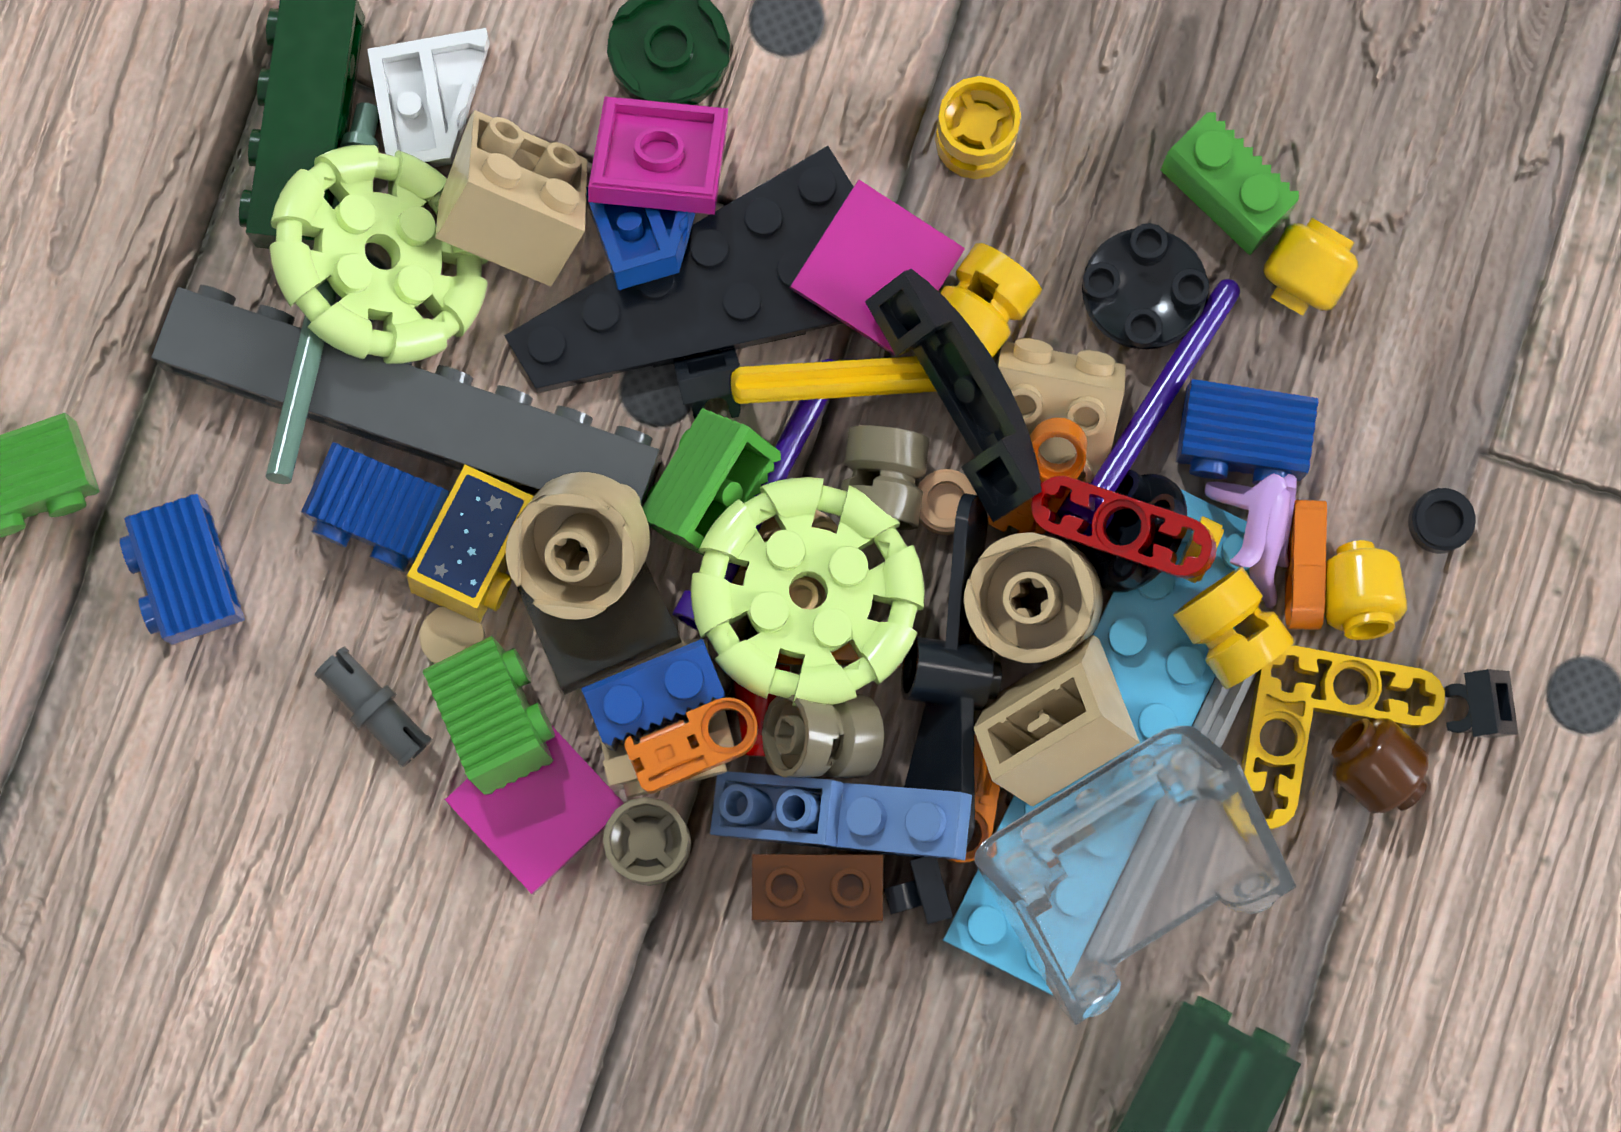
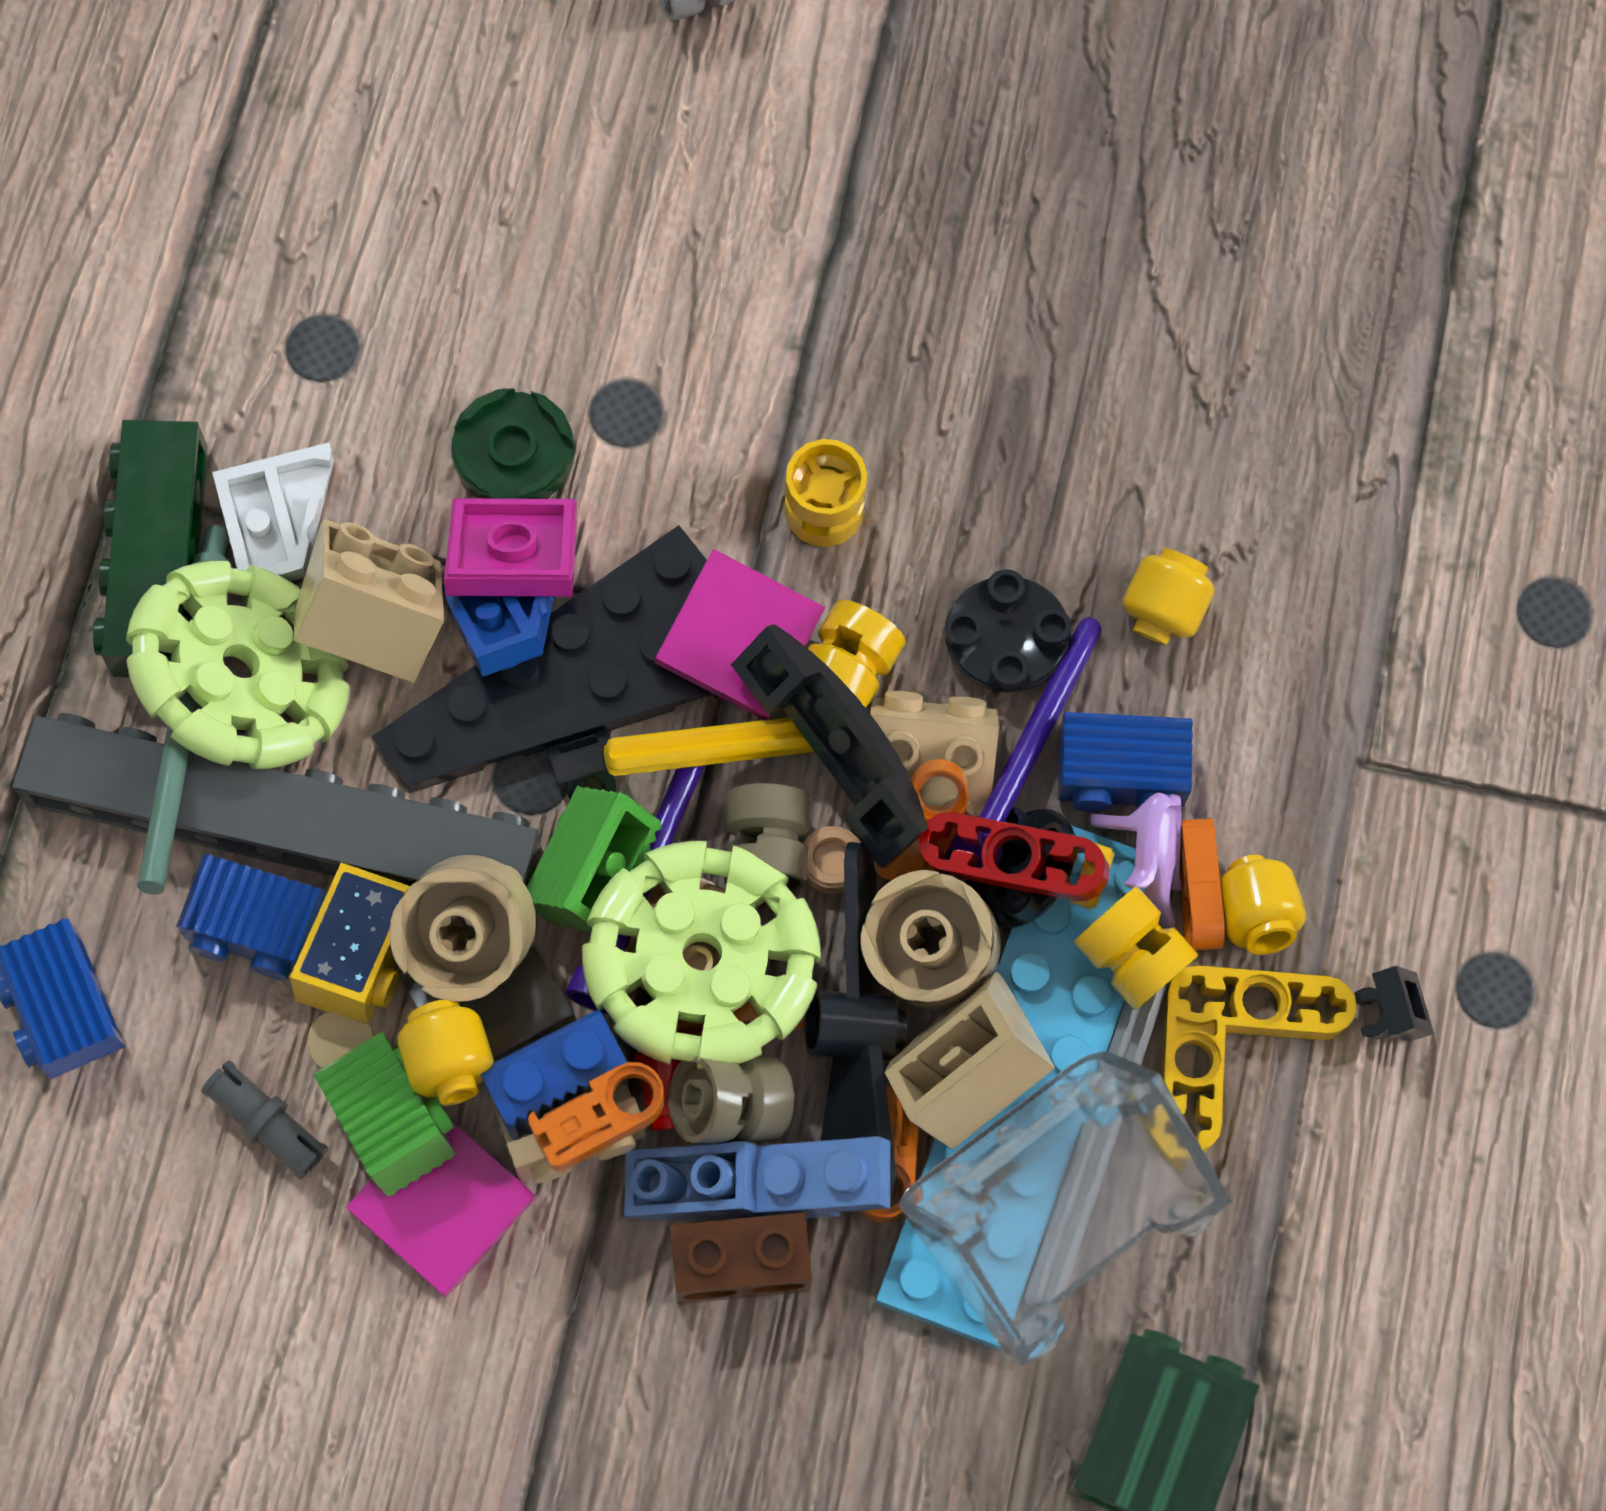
camera: 10 degrees left, 10 degrees down
(550, 665) = (444, 1051): none -> yellow head
(647, 841) = (560, 1226): dark tan wheel -> none
(925, 891) = (850, 1251): black tile -> none
(1229, 182) = (1079, 523): bright green brick -> none
(1380, 765) = (1300, 1076): reddish brown head -> none
(1441, 520) = (1329, 831): black tile -> none

